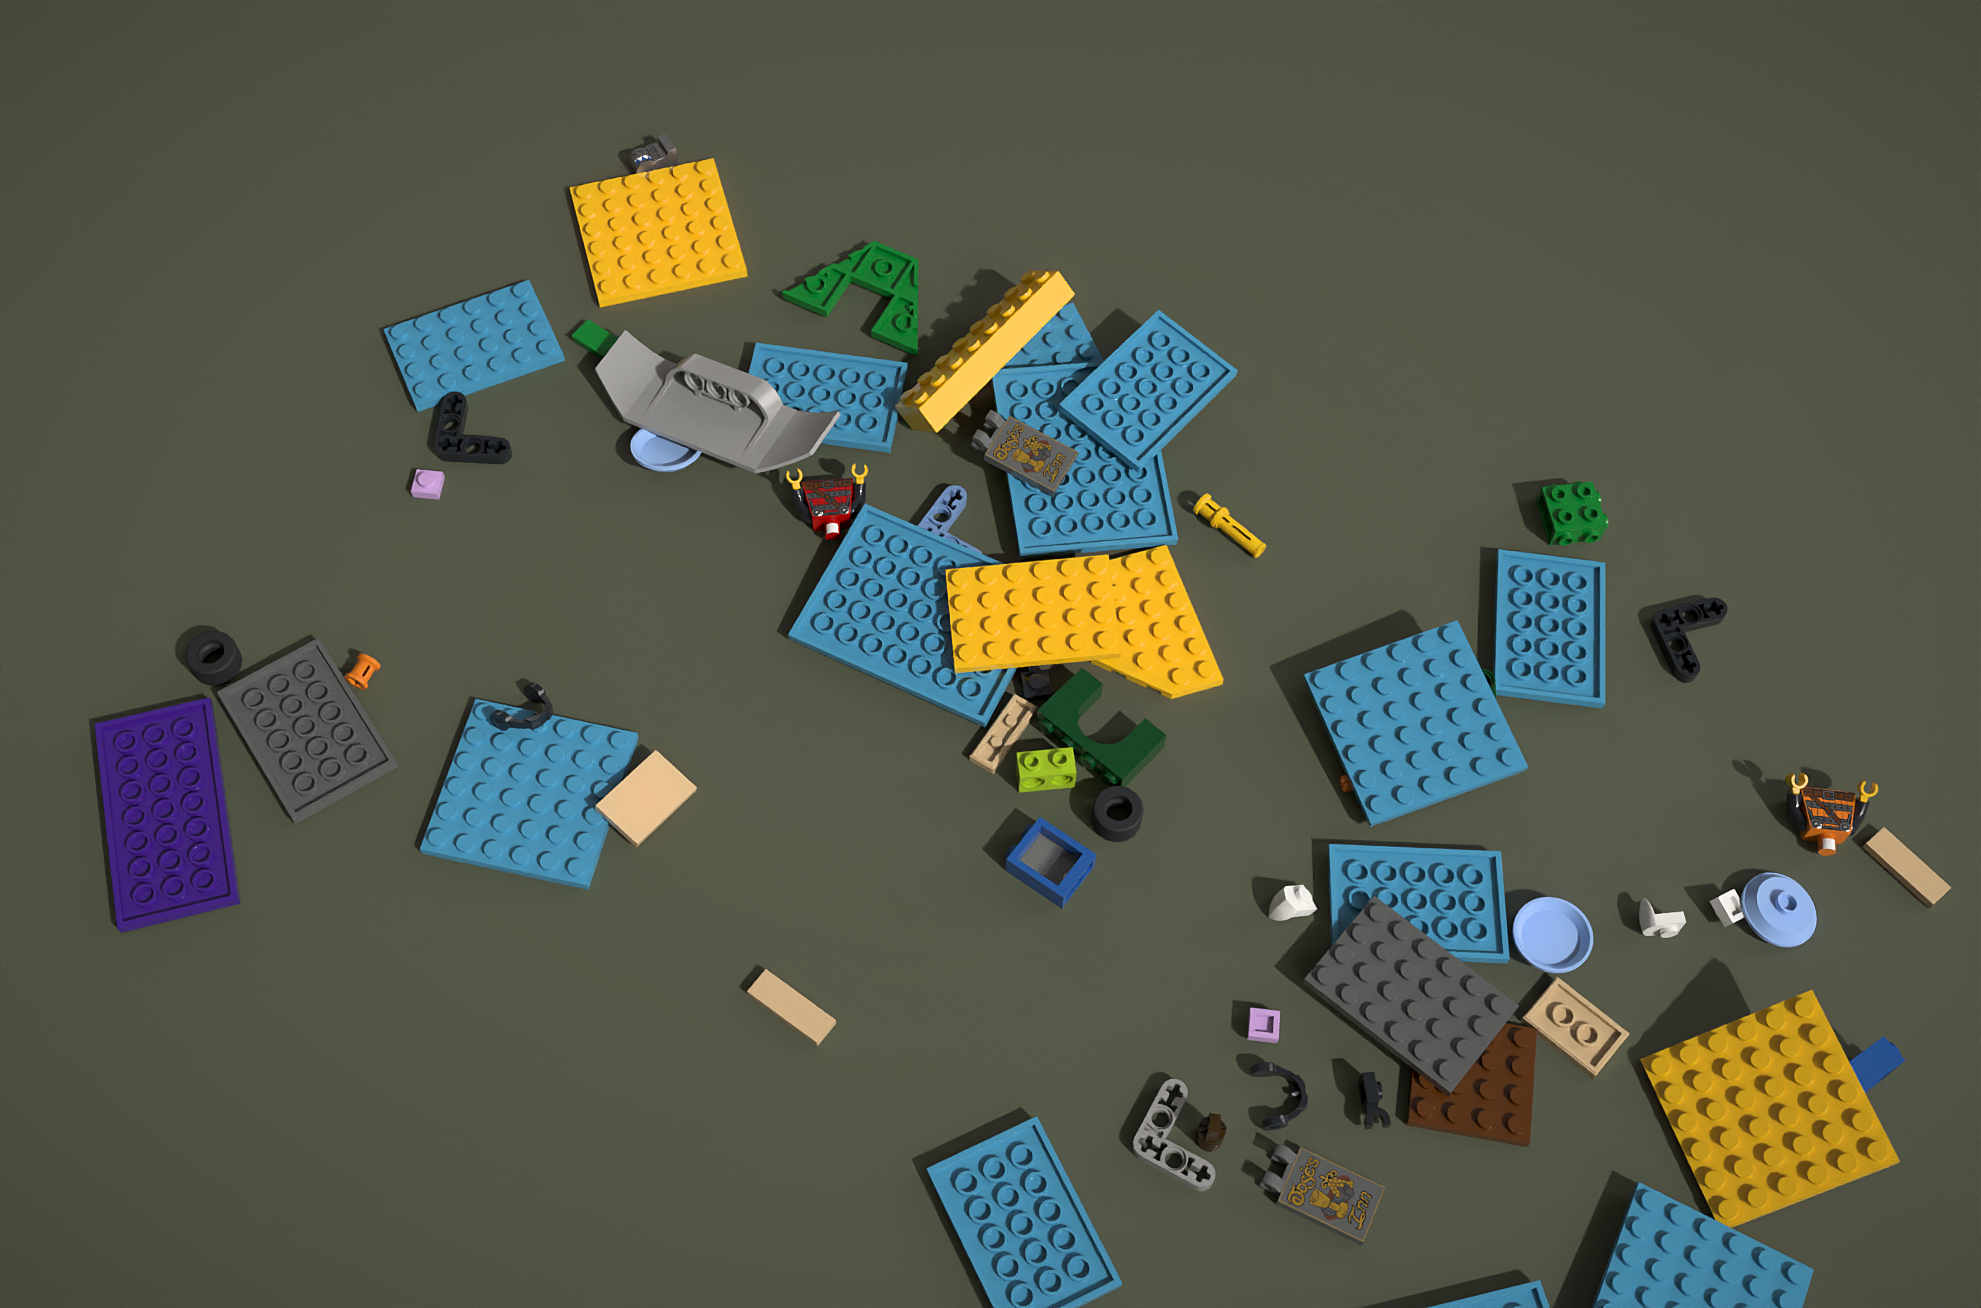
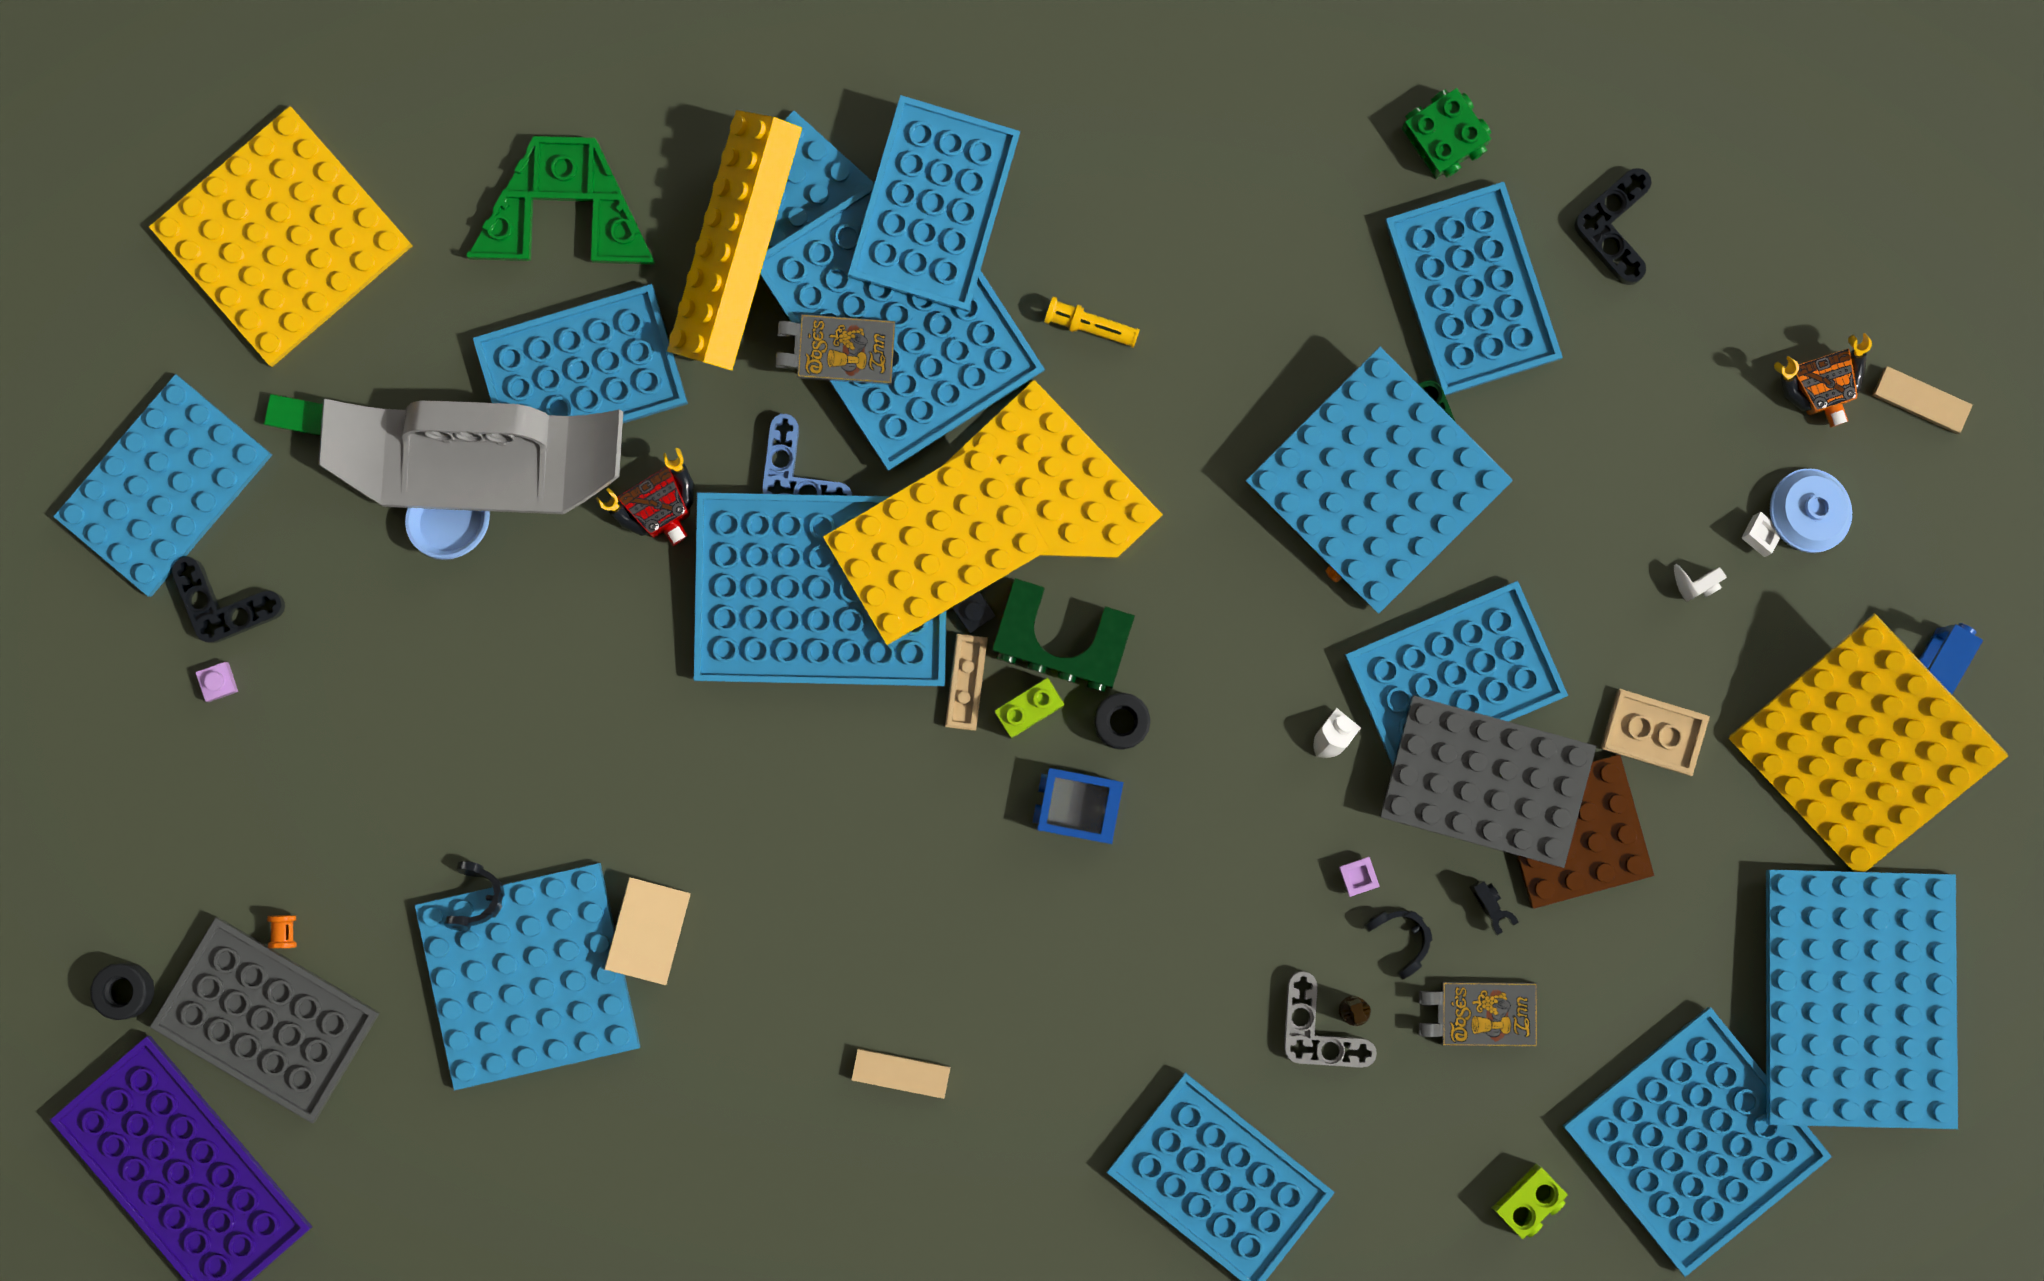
camera: 20 degrees left, 25 degrees up
(655, 156) = (221, 138): flat silver leg -> none
(1552, 935) = (1601, 649): light blue piece -> none

